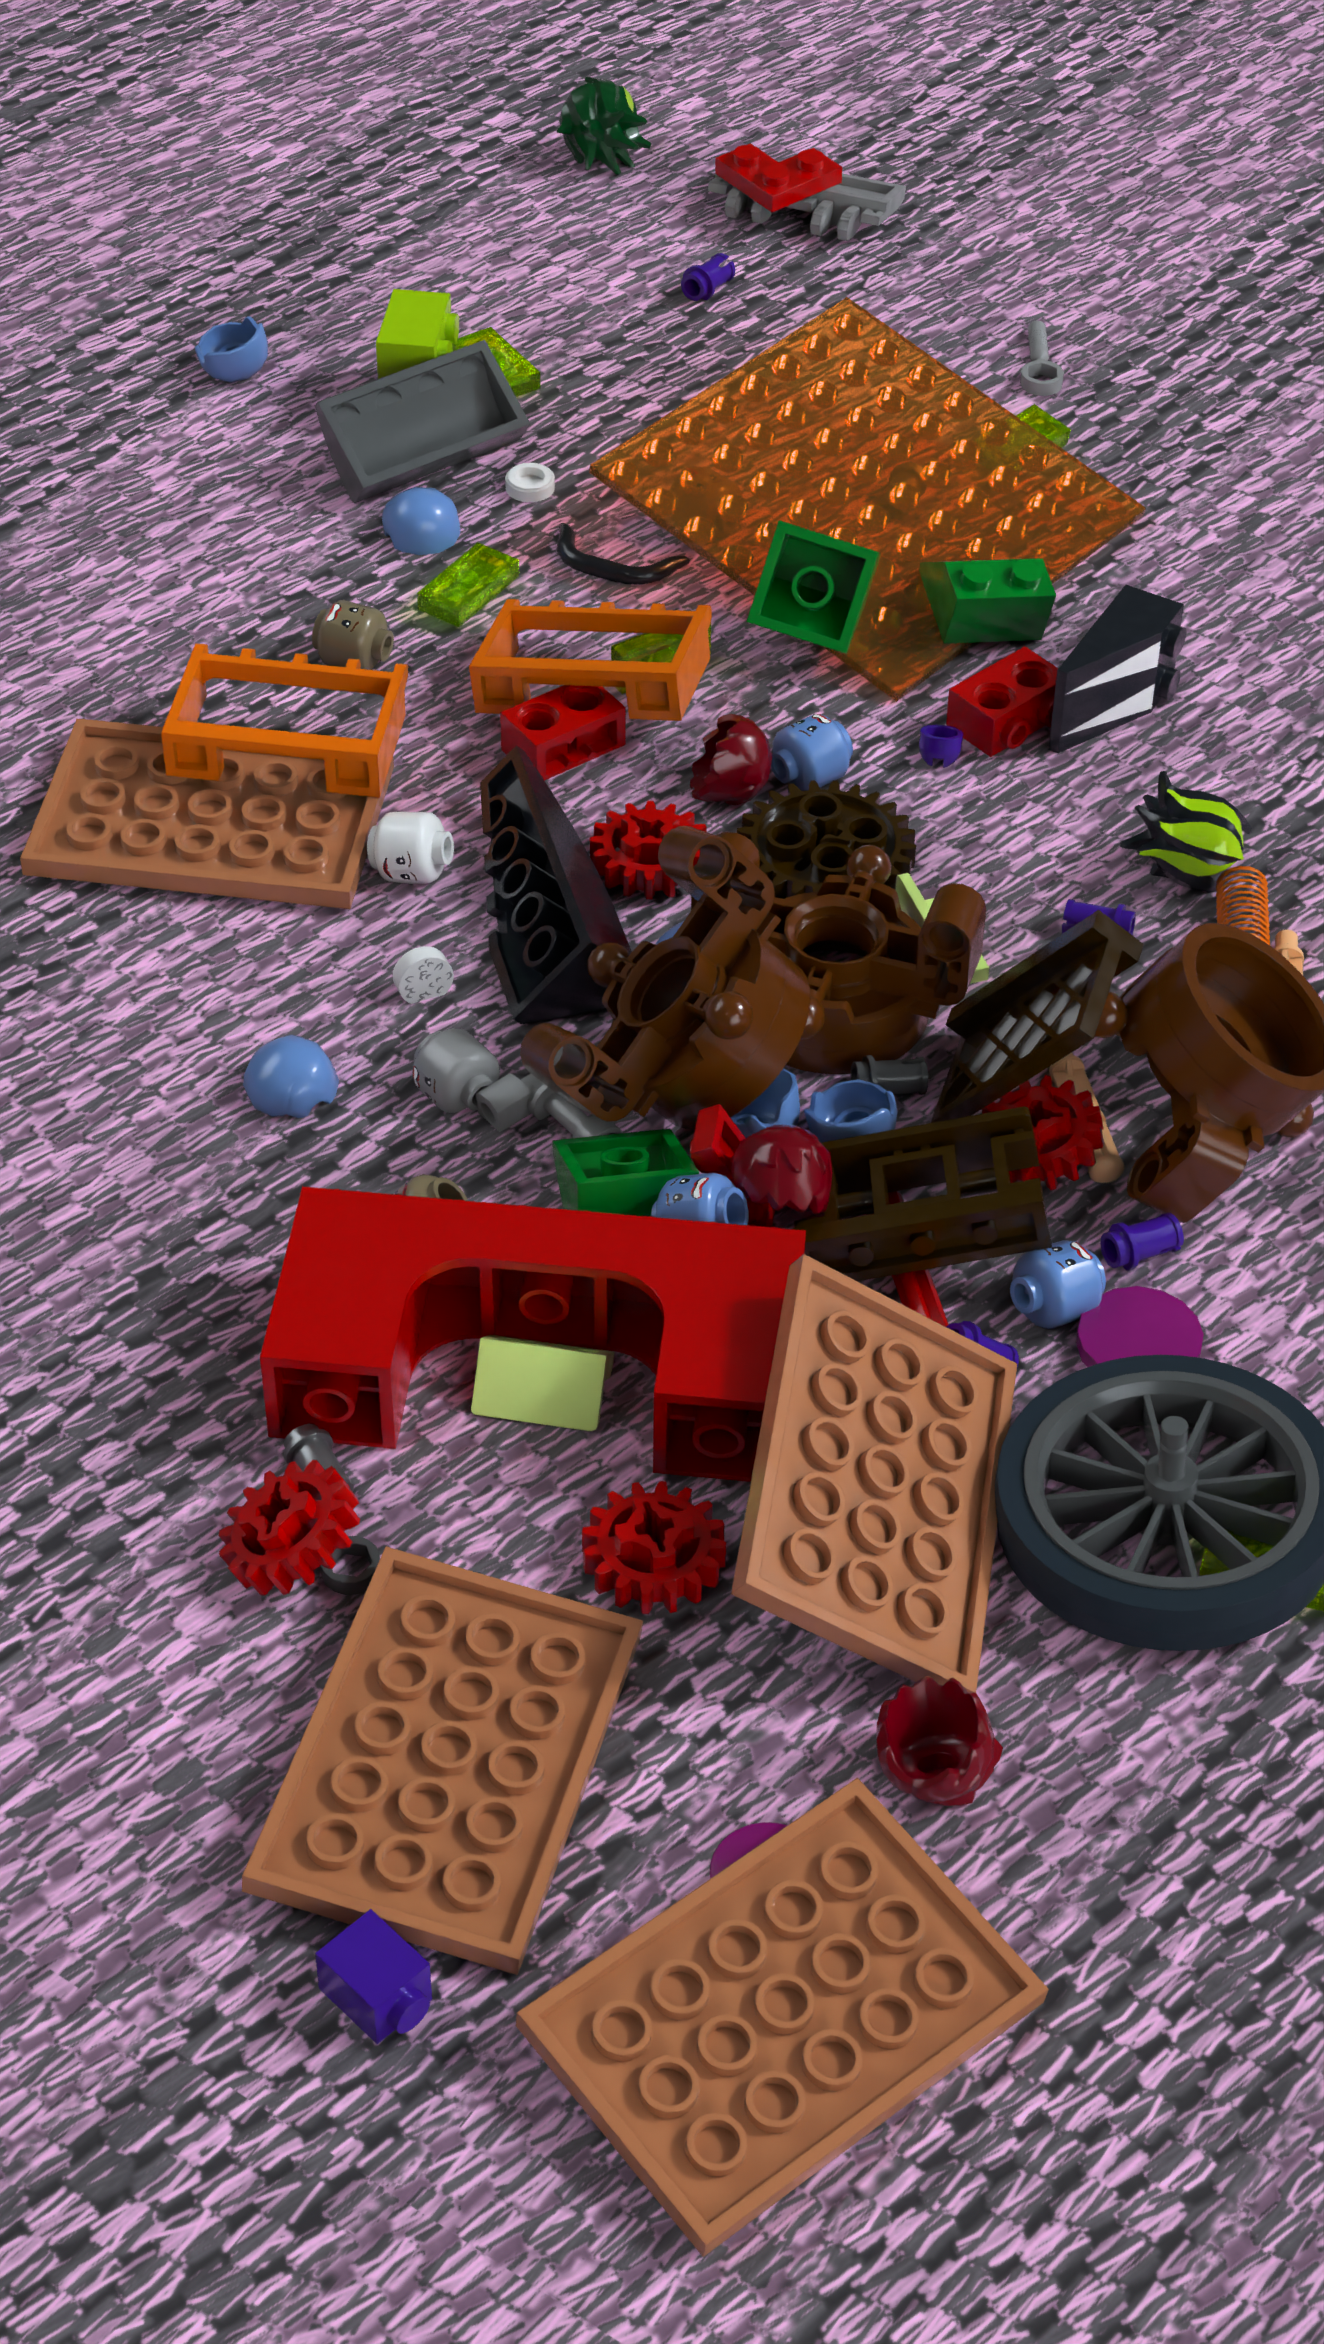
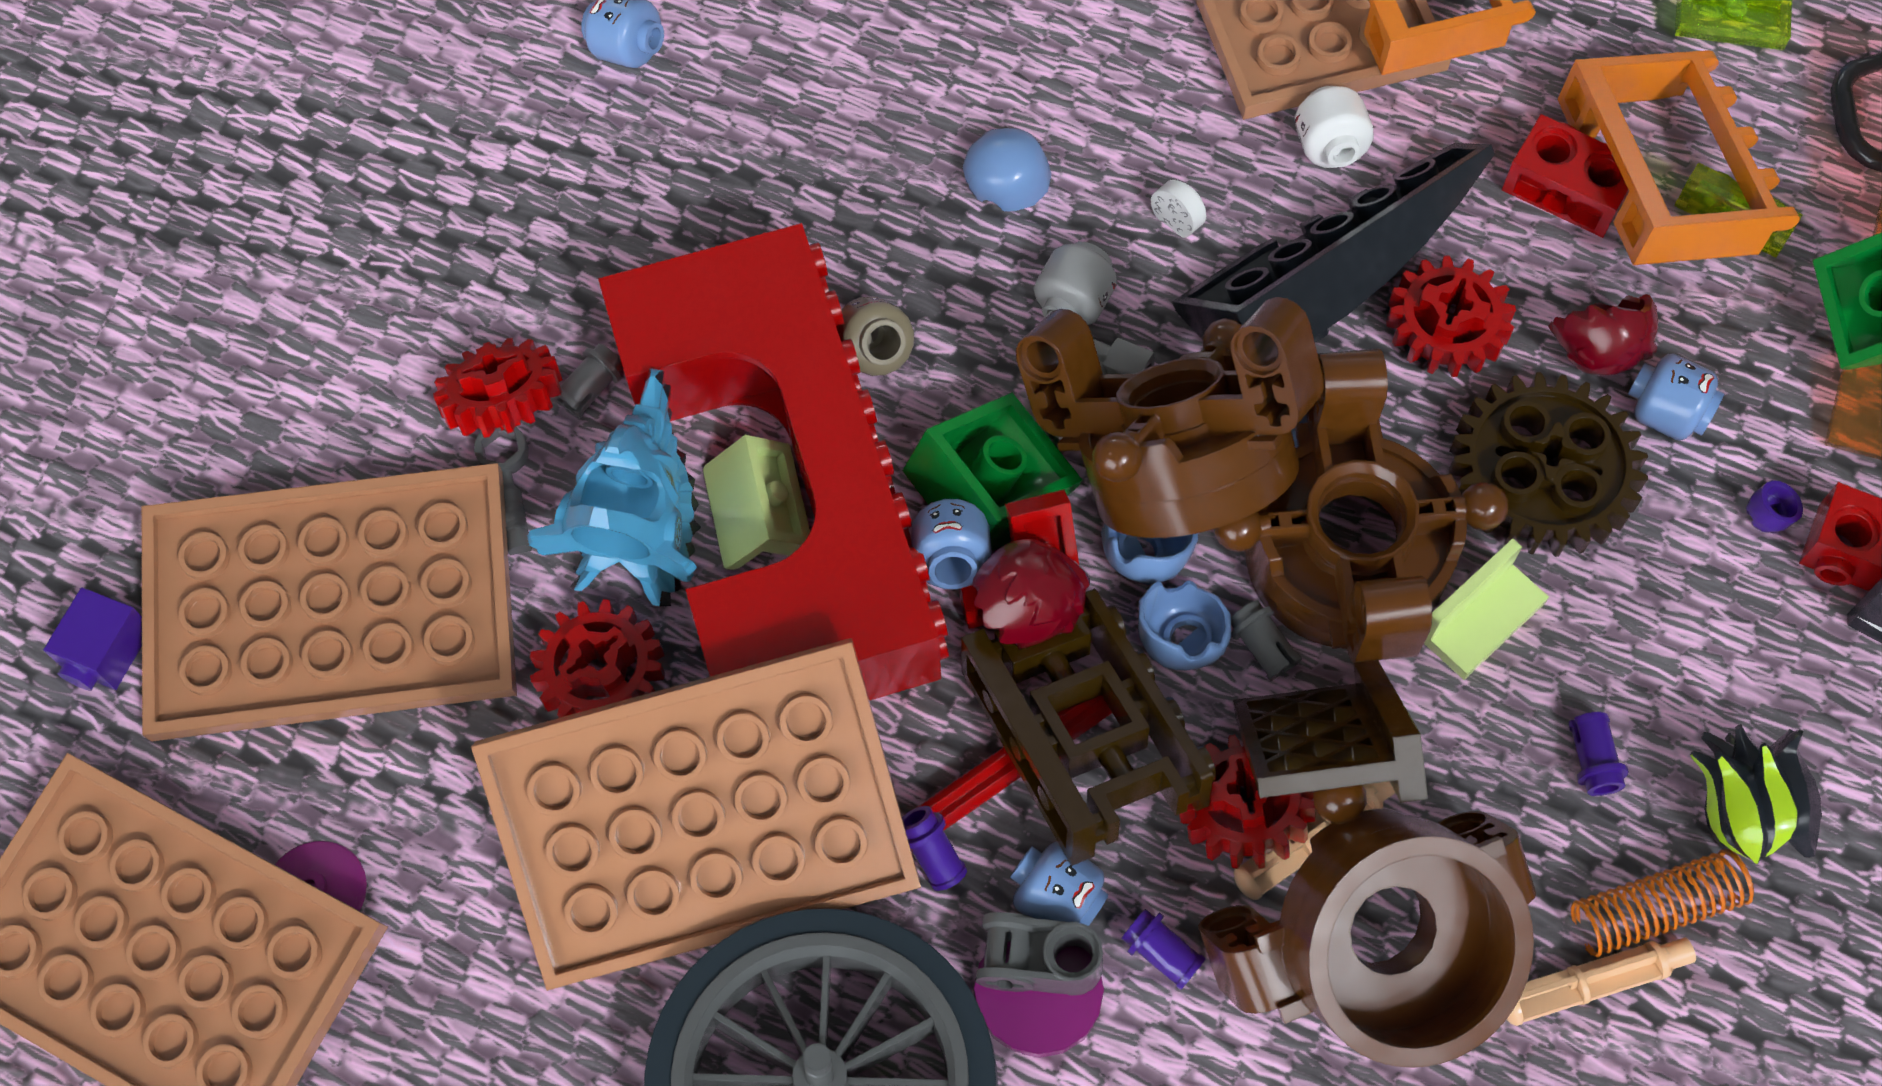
camera: 70 degrees right, 20 degrees up
(508, 1432) = (631, 504): none -> dark azure piece
(936, 1742) = (454, 976): dark red hair -> none
(1120, 1299) = (1034, 953): none -> dark grey piece

